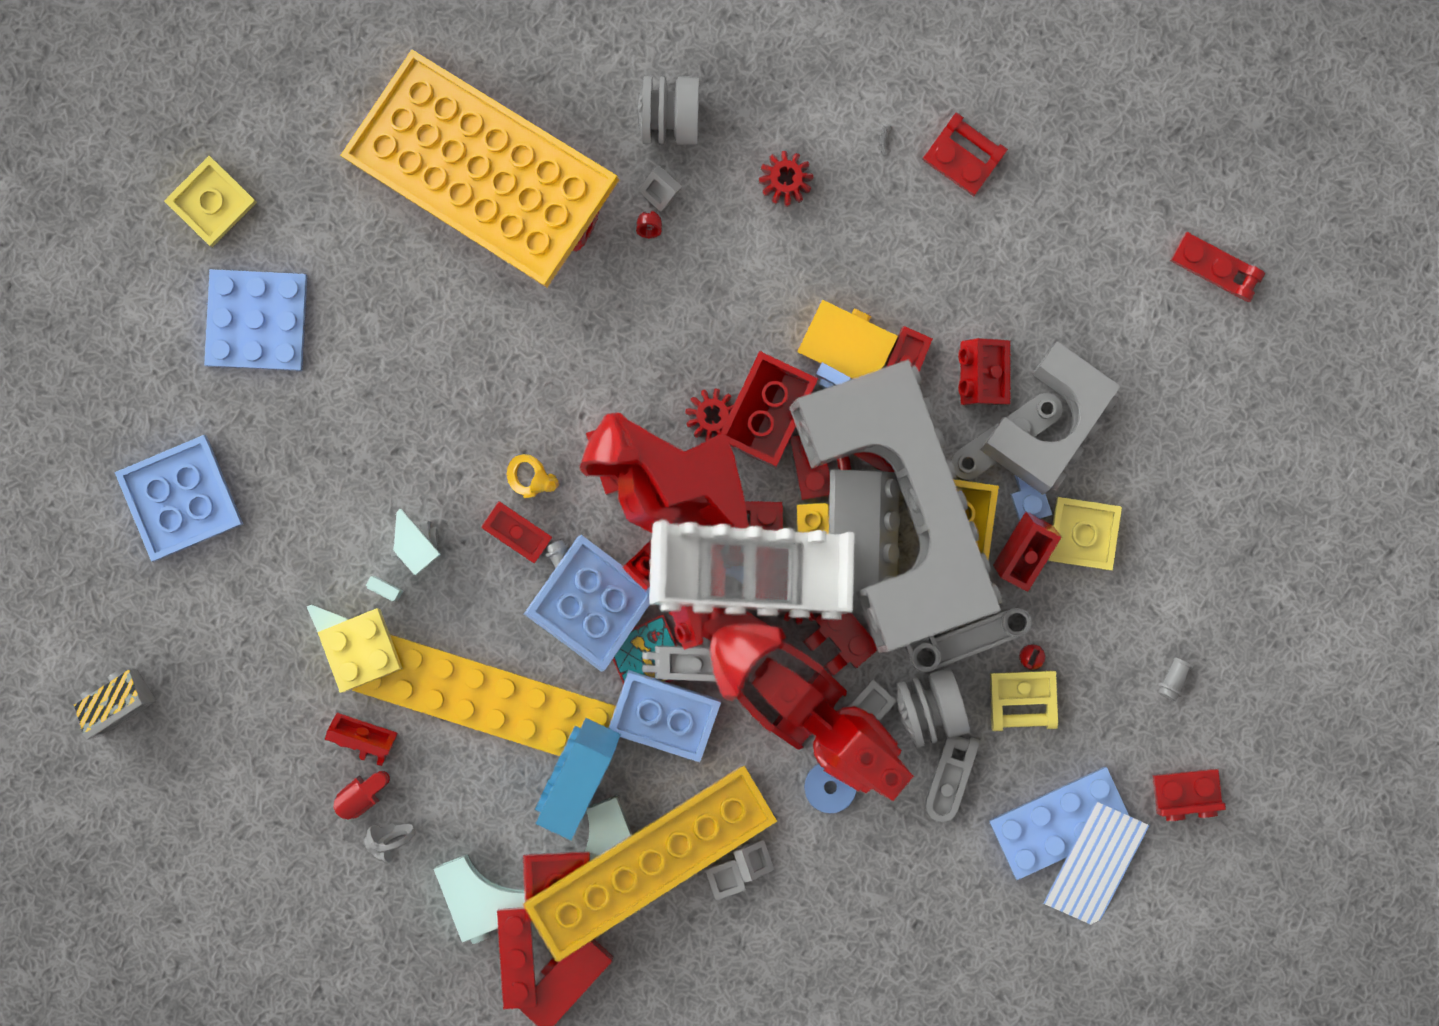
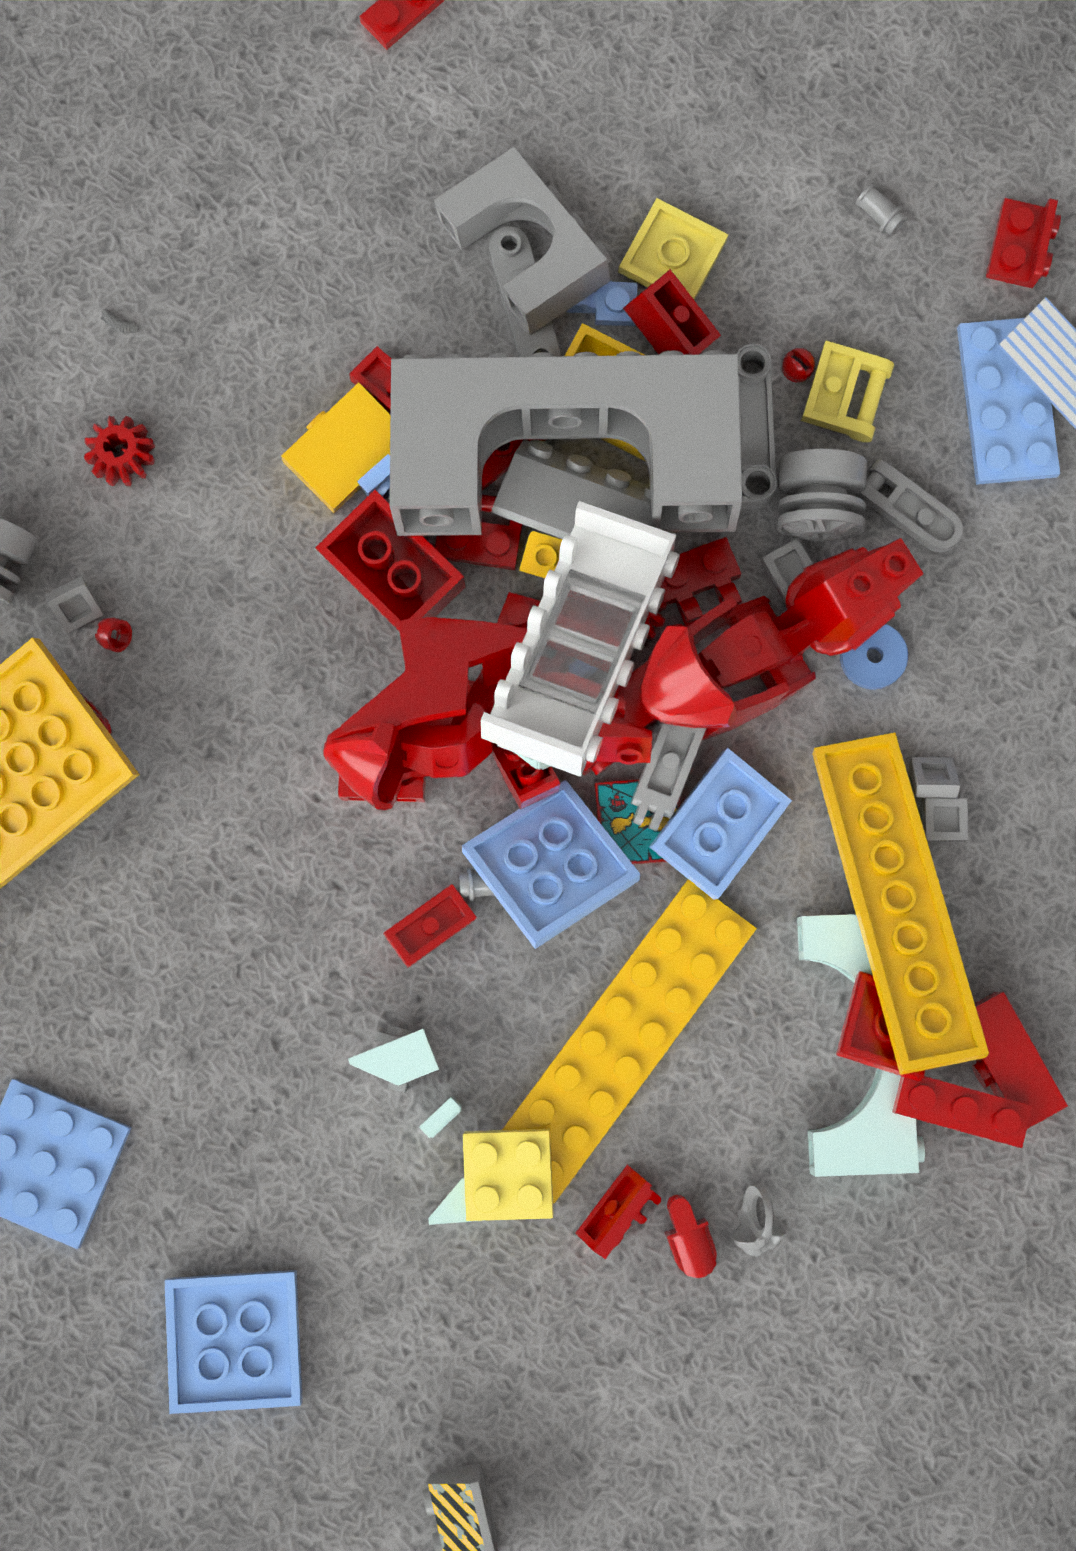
camera: 70 degrees left, 5 degrees down
(540, 482) = (380, 874): yellow piece -> none
(576, 778) = (763, 953): dark azure brick -> none
(701, 415) = (368, 651): red gear -> none
(957, 162) = (179, 246): red plate -> none
(984, 372) = (439, 301): red bracket -> none

